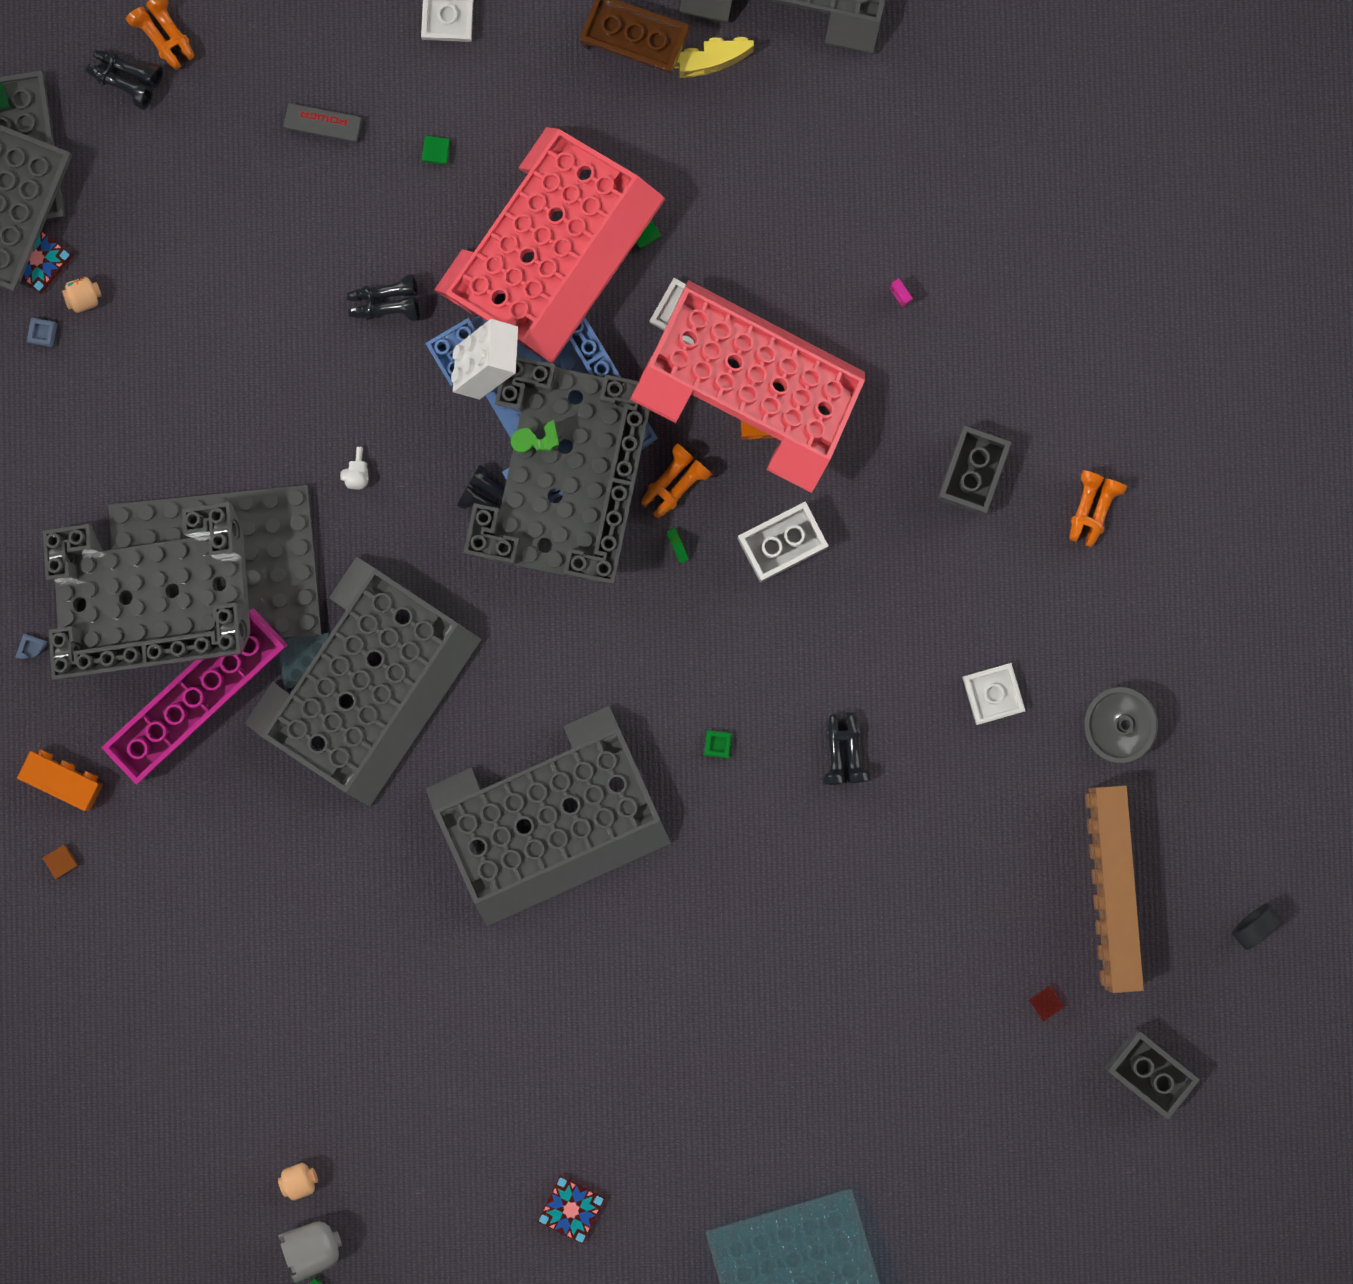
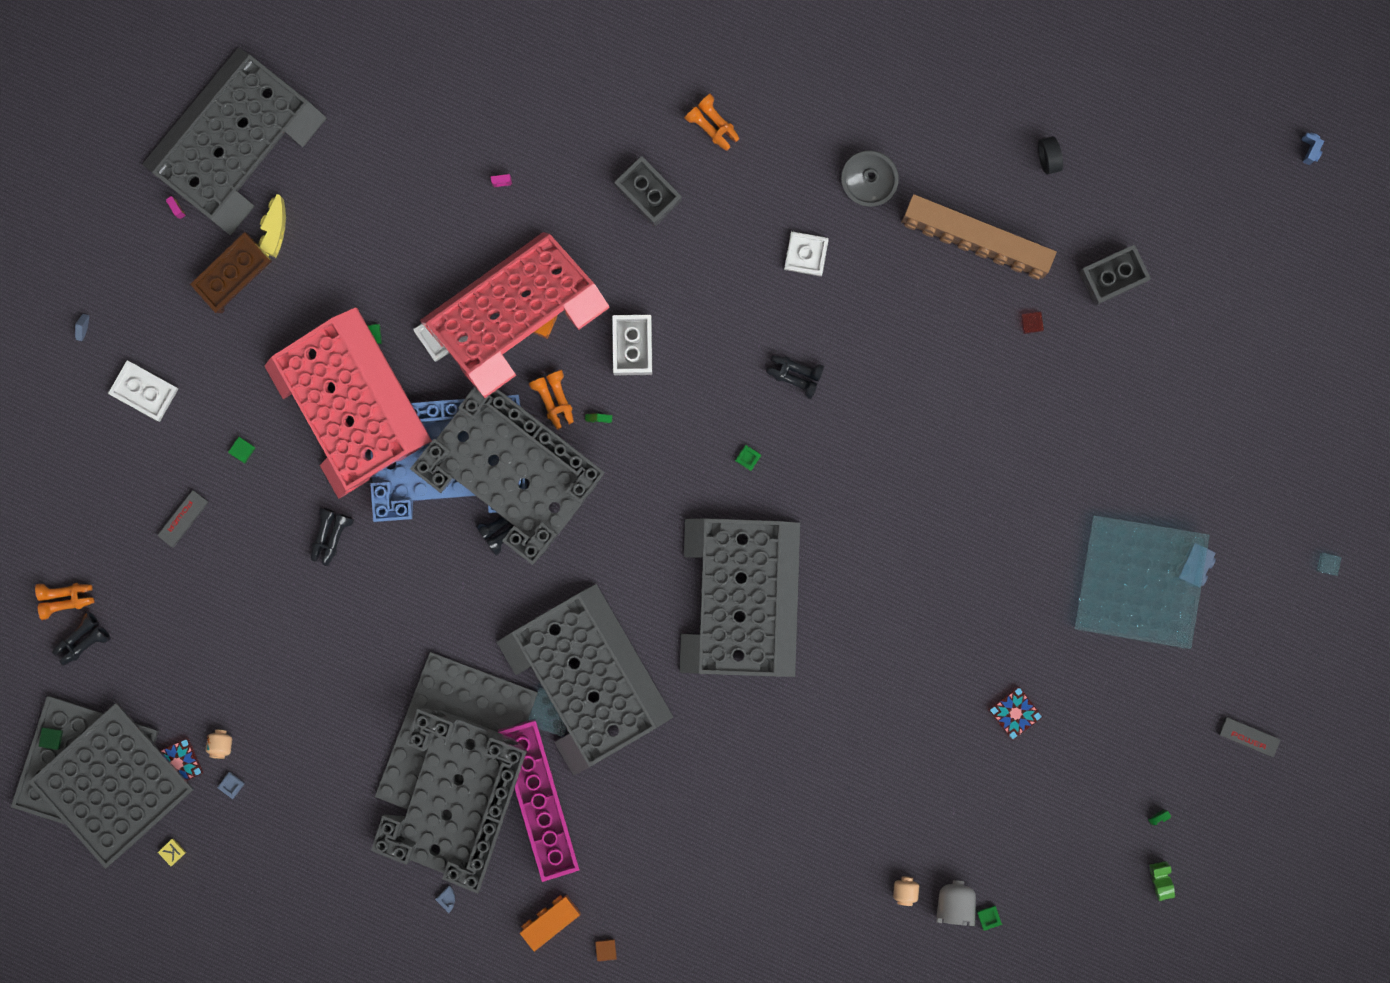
camera: 65 degrees left, 0 degrees up
(357, 474) = (439, 614): white piece -> none
(485, 359) = (406, 484): white brick -> none
(524, 440) = (475, 484): bright green leg -> none

